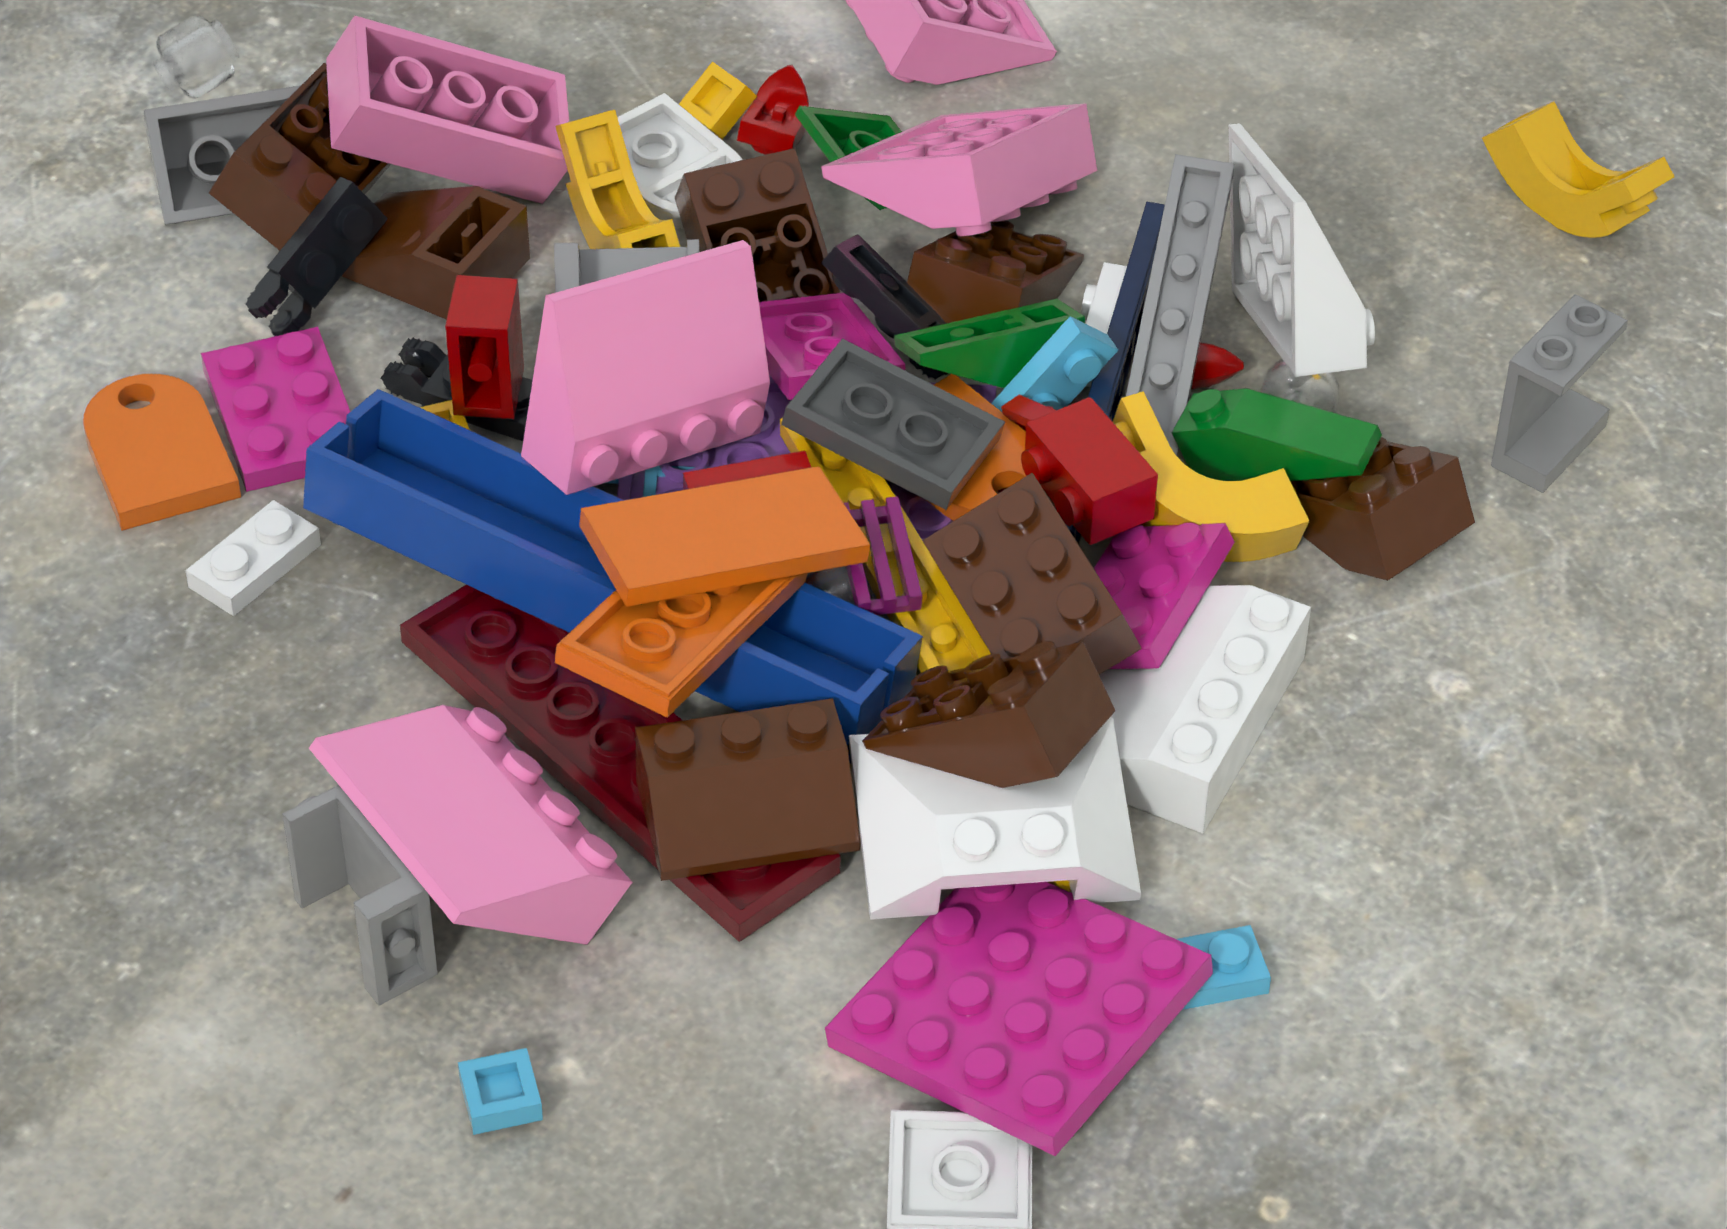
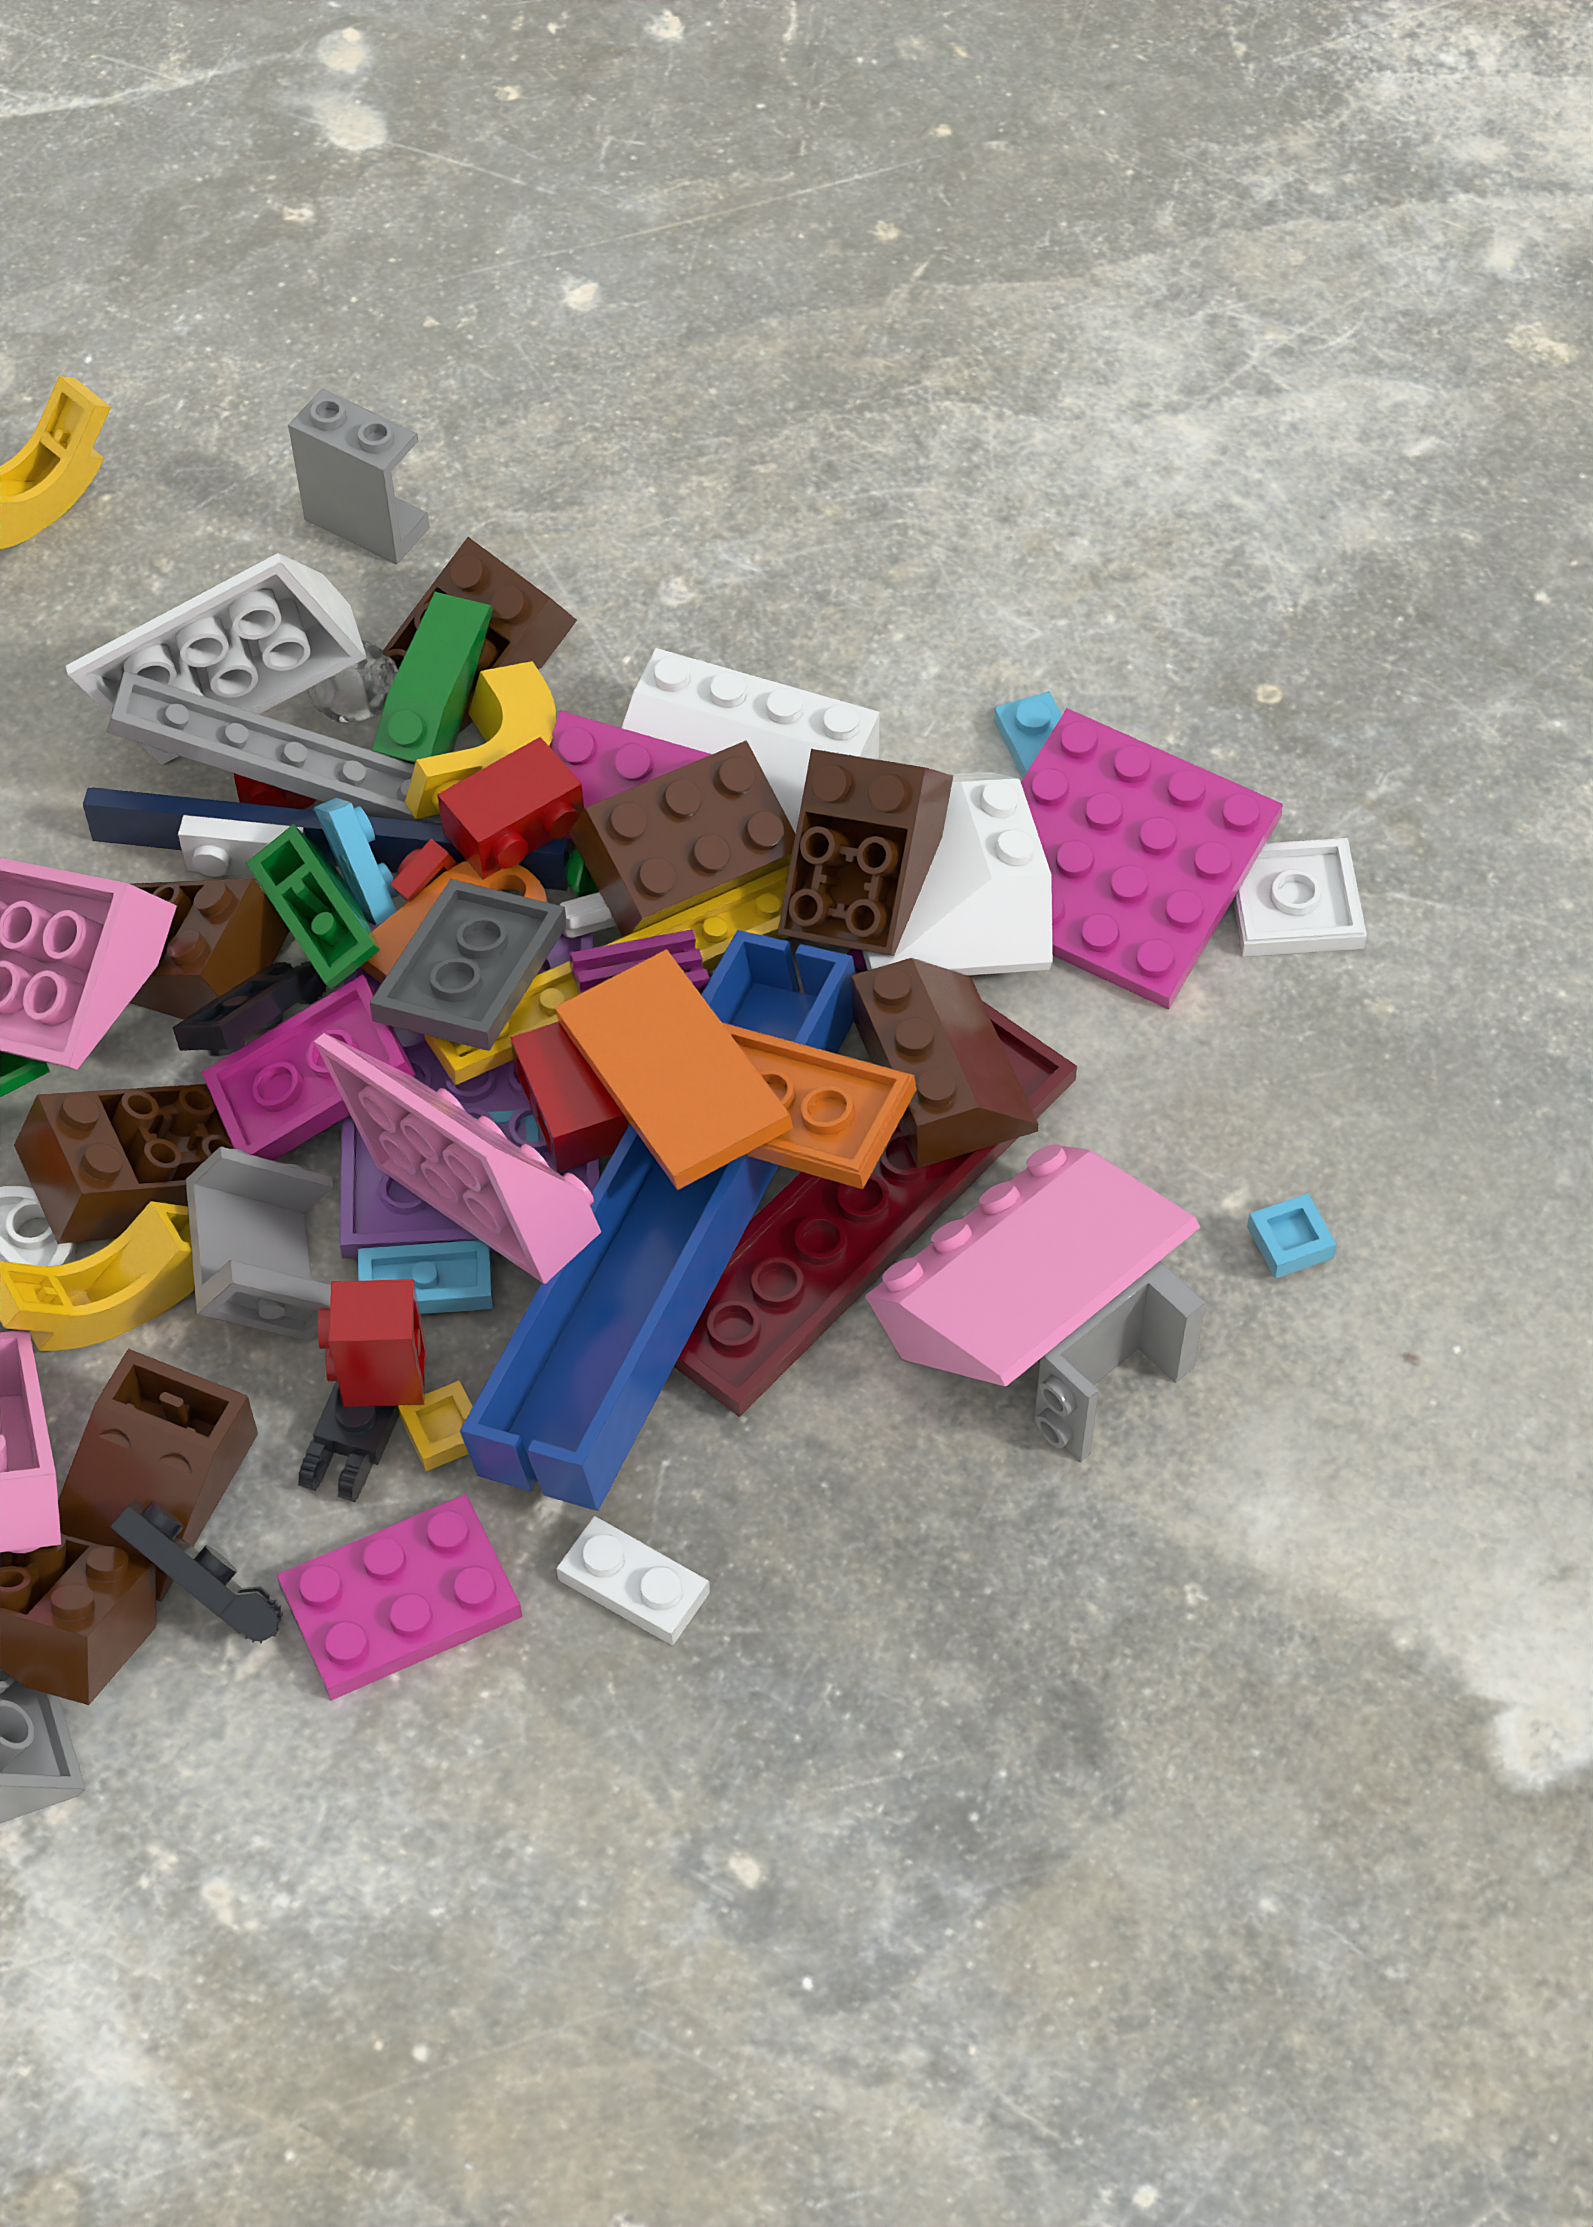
camera: 95 degrees left, 10 degrees up
(160, 455) = (479, 1713): orange tile -> none

